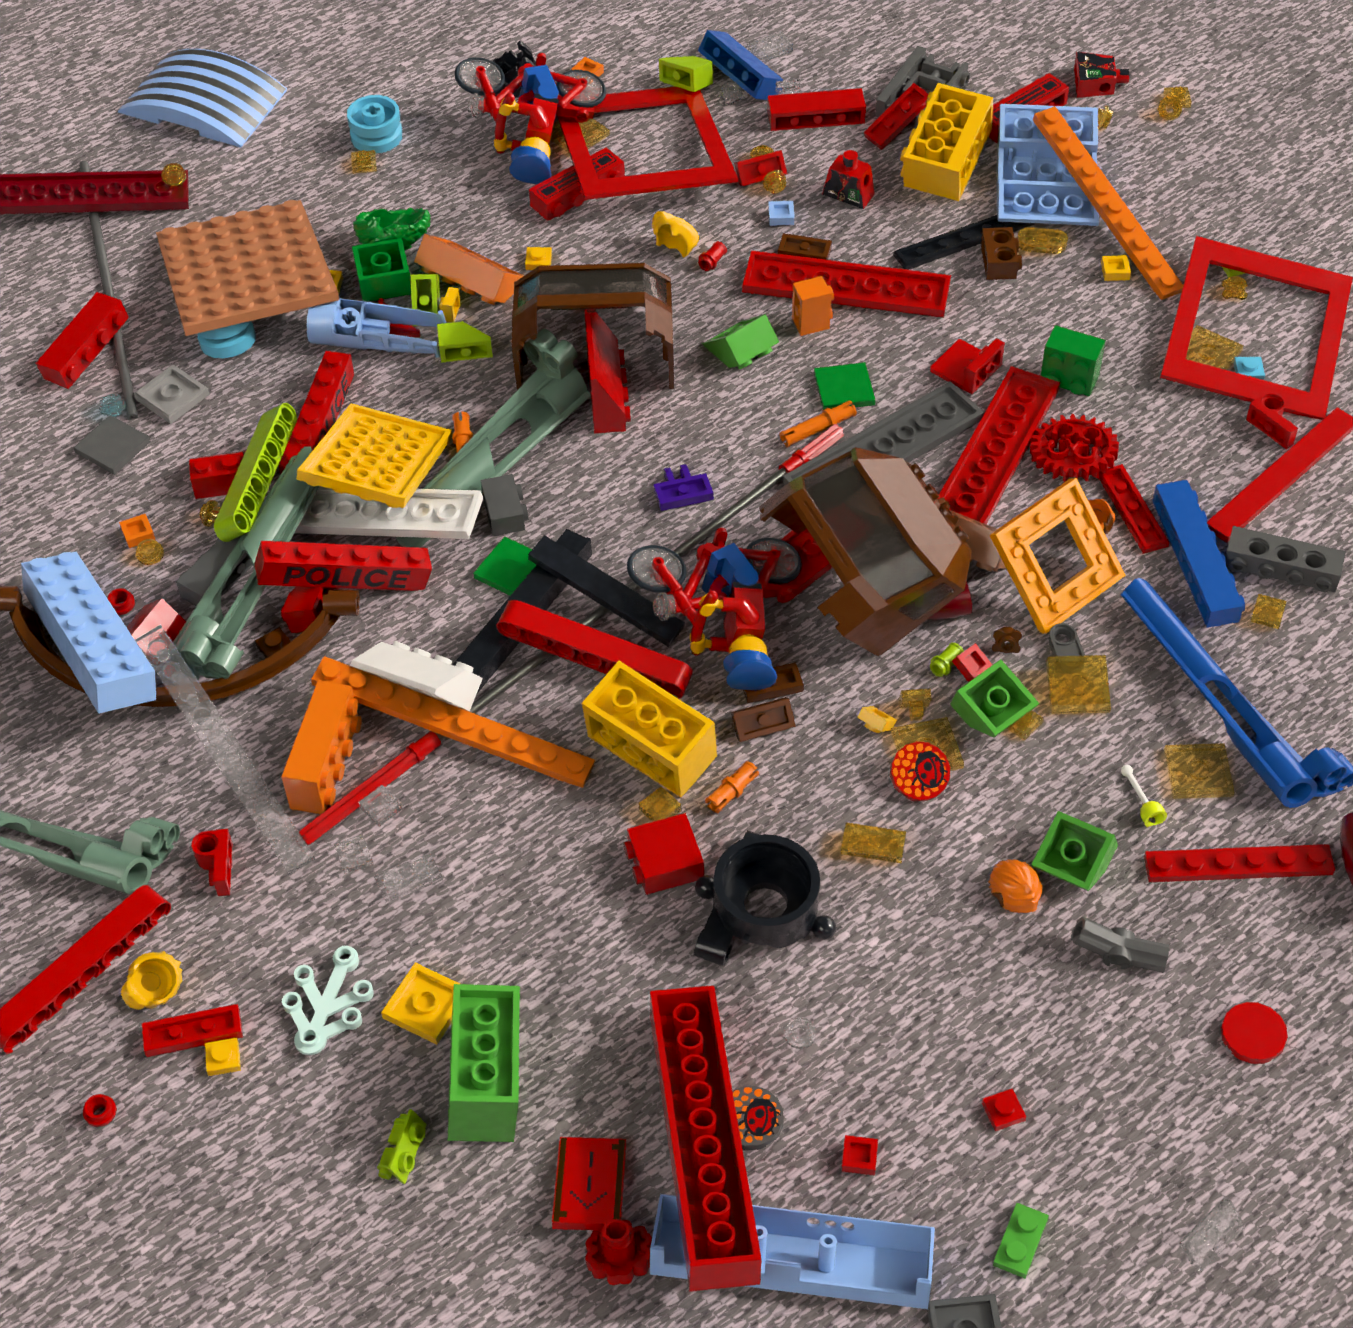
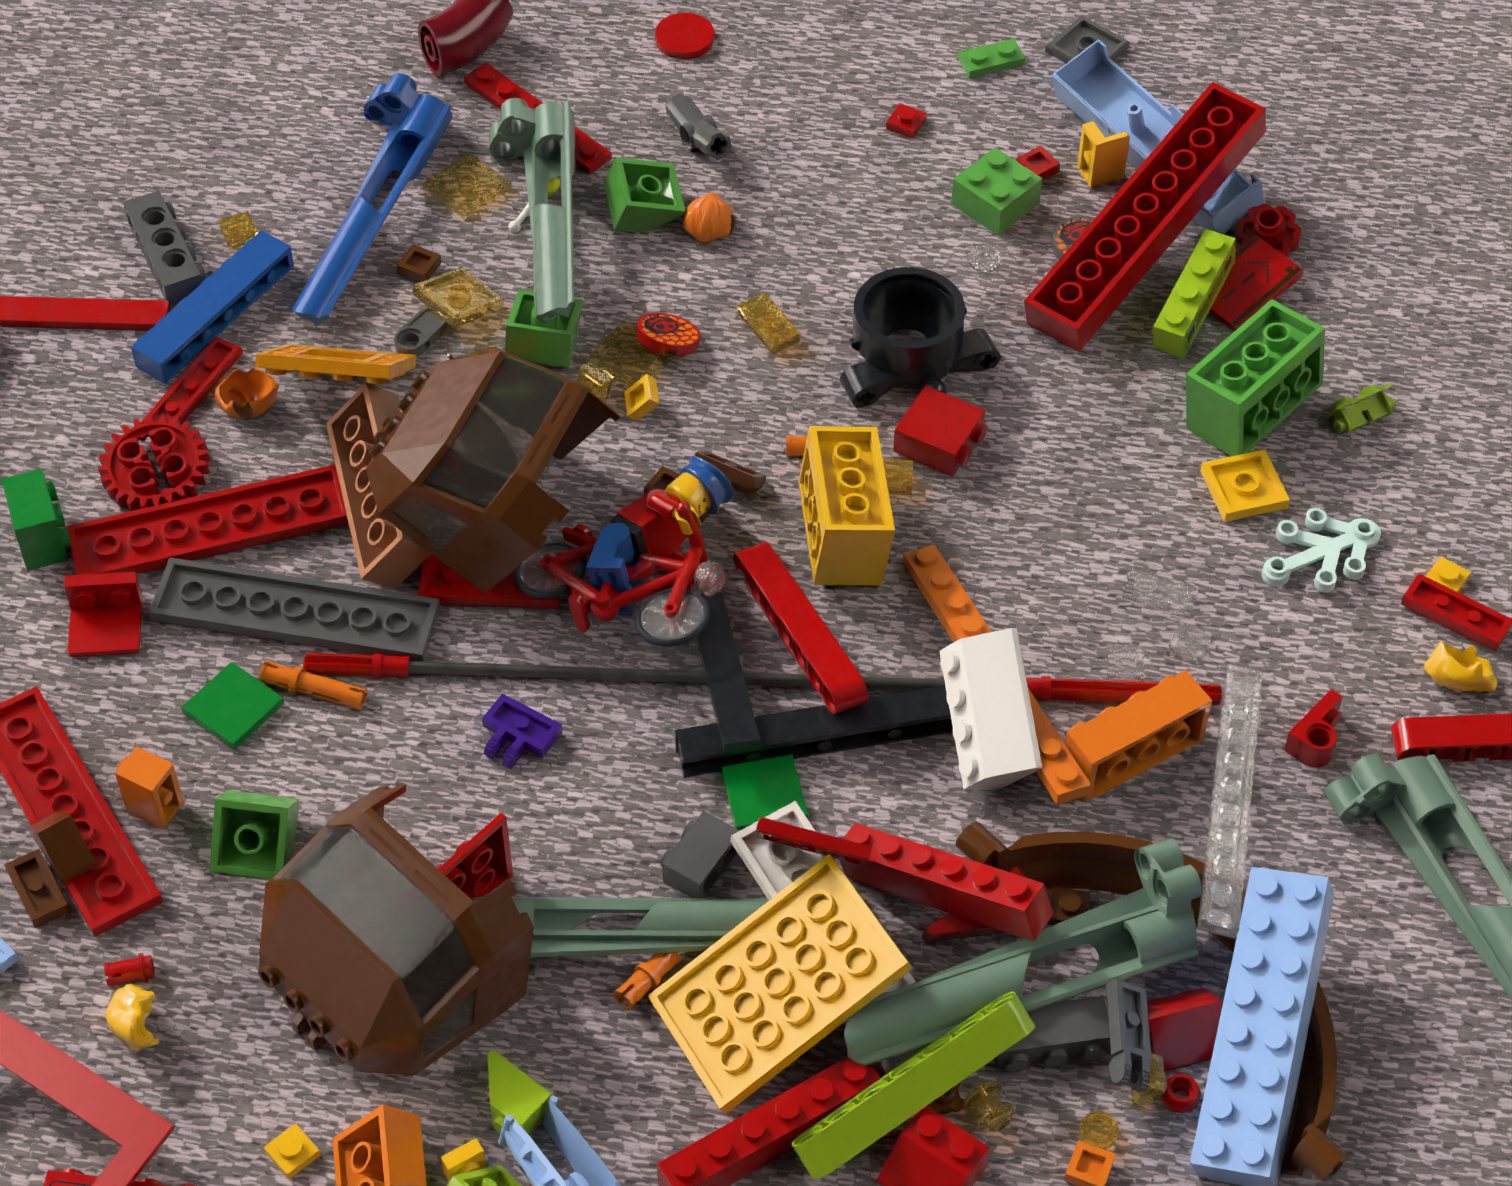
camera: 135 degrees left, 0 degrees up
(140, 588) = (1156, 1086): none -> clear yellow plate
(168, 584) = (1128, 1035): none -> dark grey hinge
(421, 500) = (813, 841): none -> red tile
(609, 1120) = (1194, 293): none -> lime brick
(816, 1181) = (1102, 157): none -> yellow panel
(817, 257) = (62, 845): none -> reddish brown slope
(855, 1090) = (996, 191): none -> bright green brick
(1135, 686) = (418, 263): none -> reddish brown plate
(1172, 818) = (548, 147): none -> sand green panel

